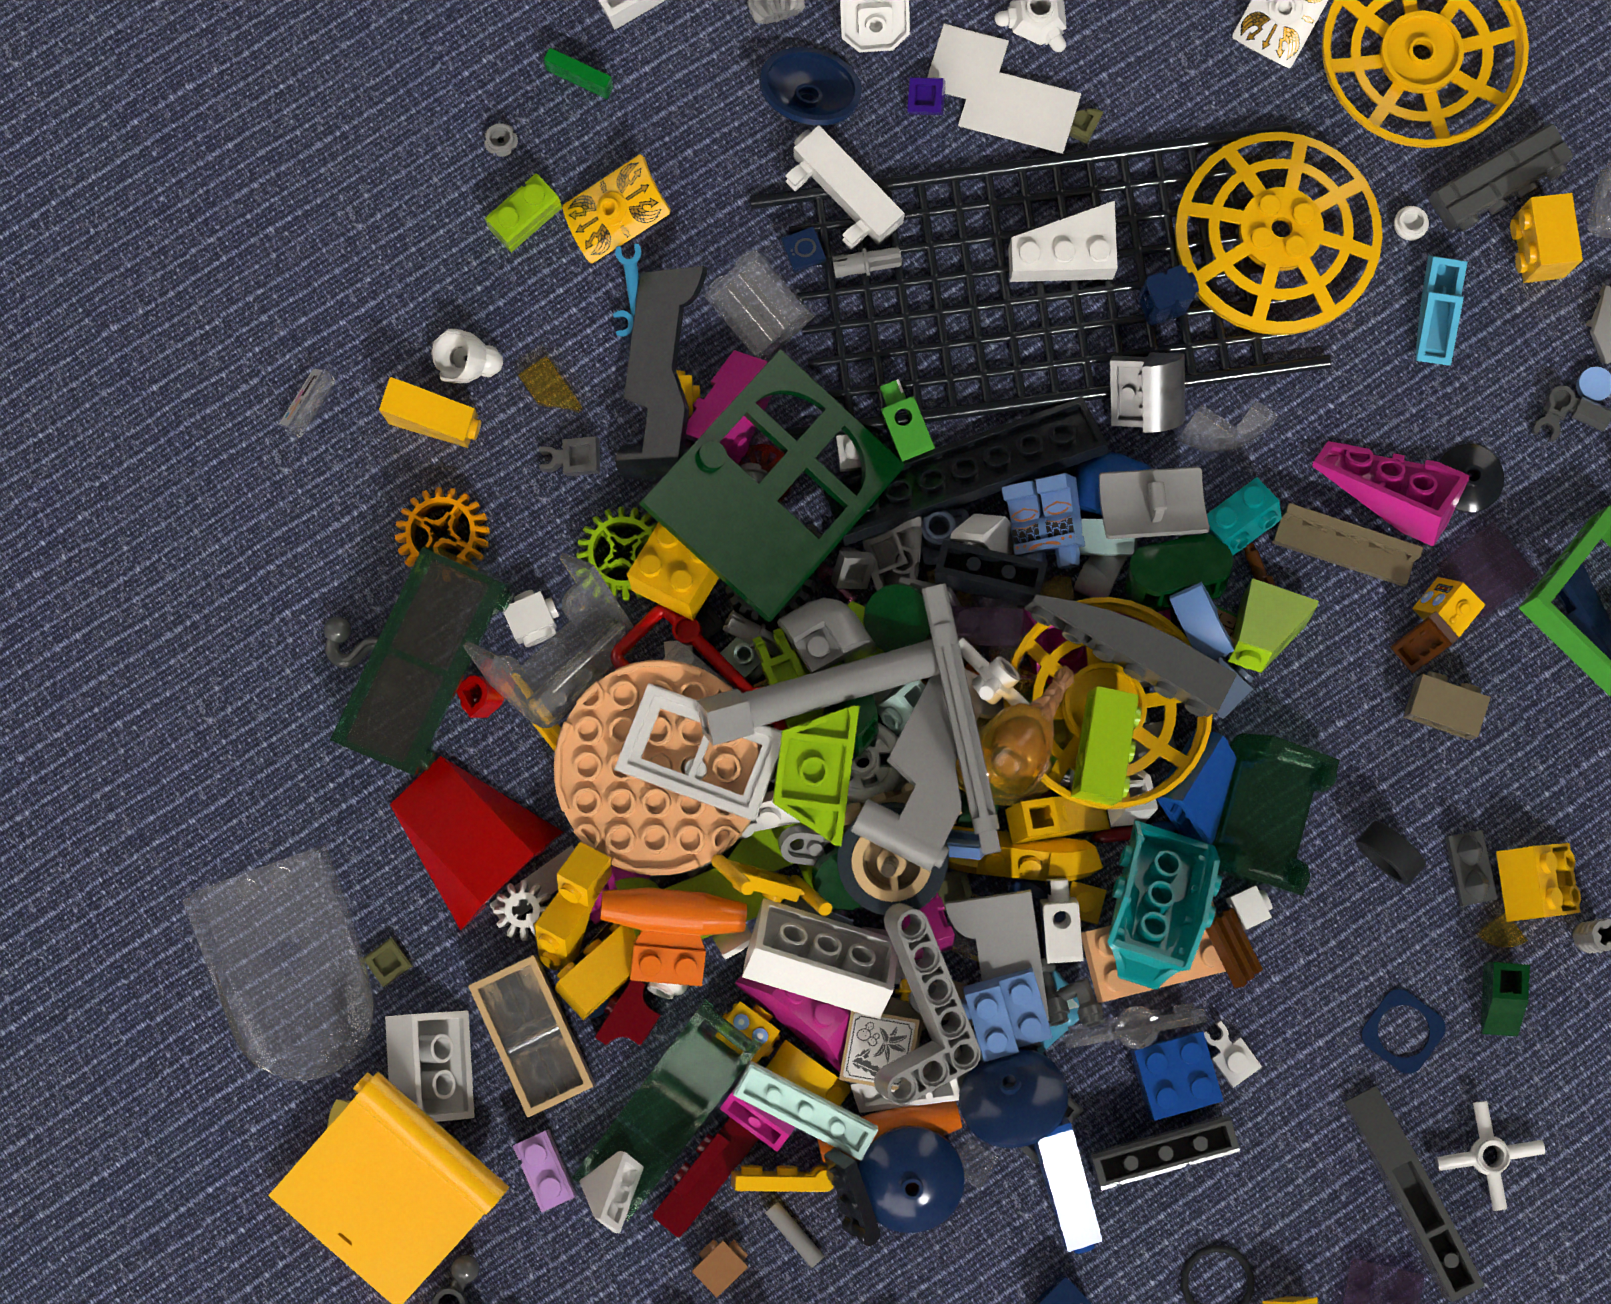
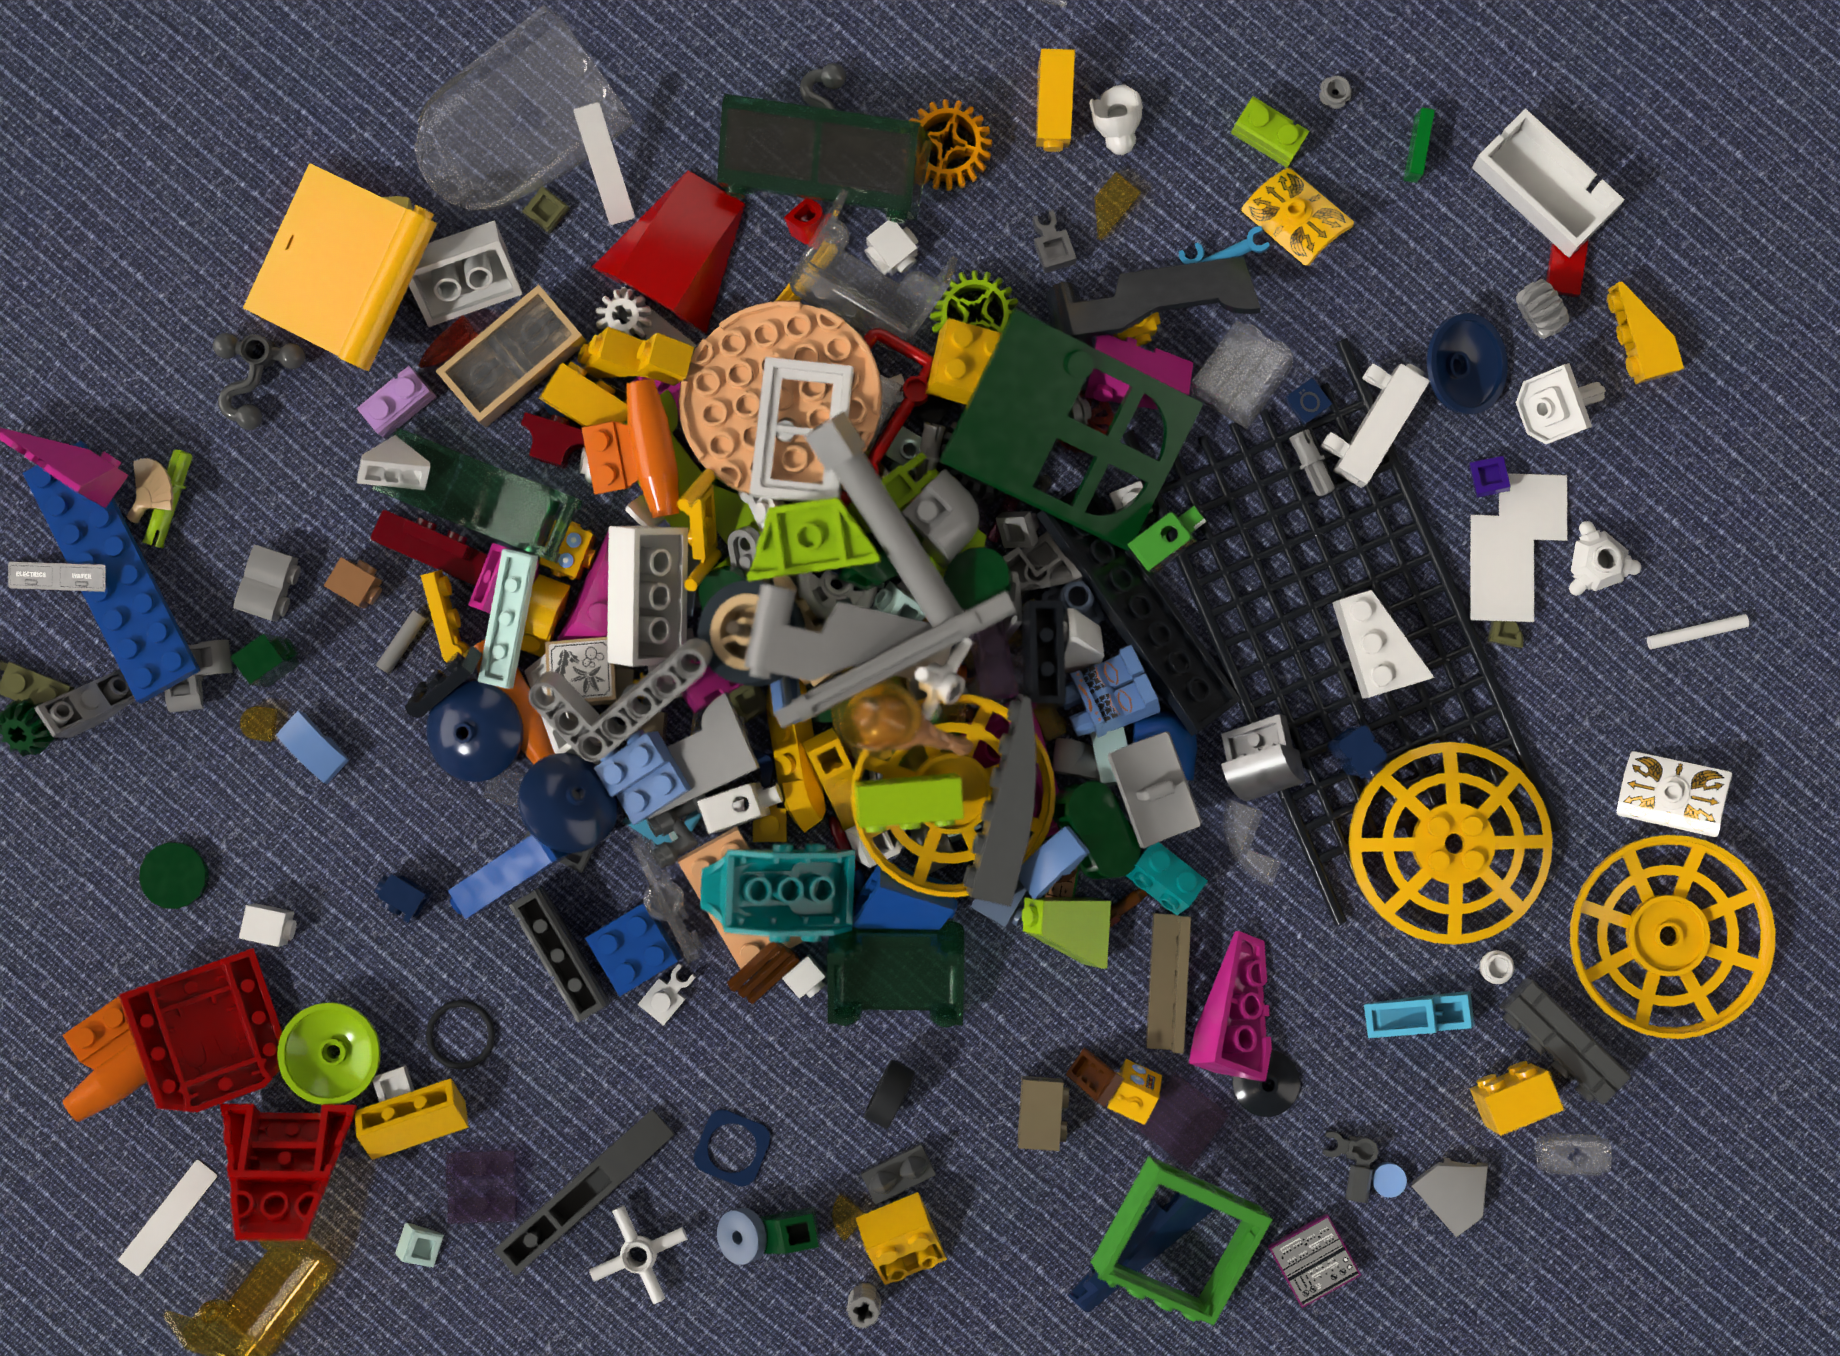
camera: 80 degrees right, 5 degrees up
(362, 885) = (604, 163): none -> white sticker
(499, 1097) = (449, 342): none -> clear red plate
(1493, 1030) = (742, 1248): none -> sand blue piece

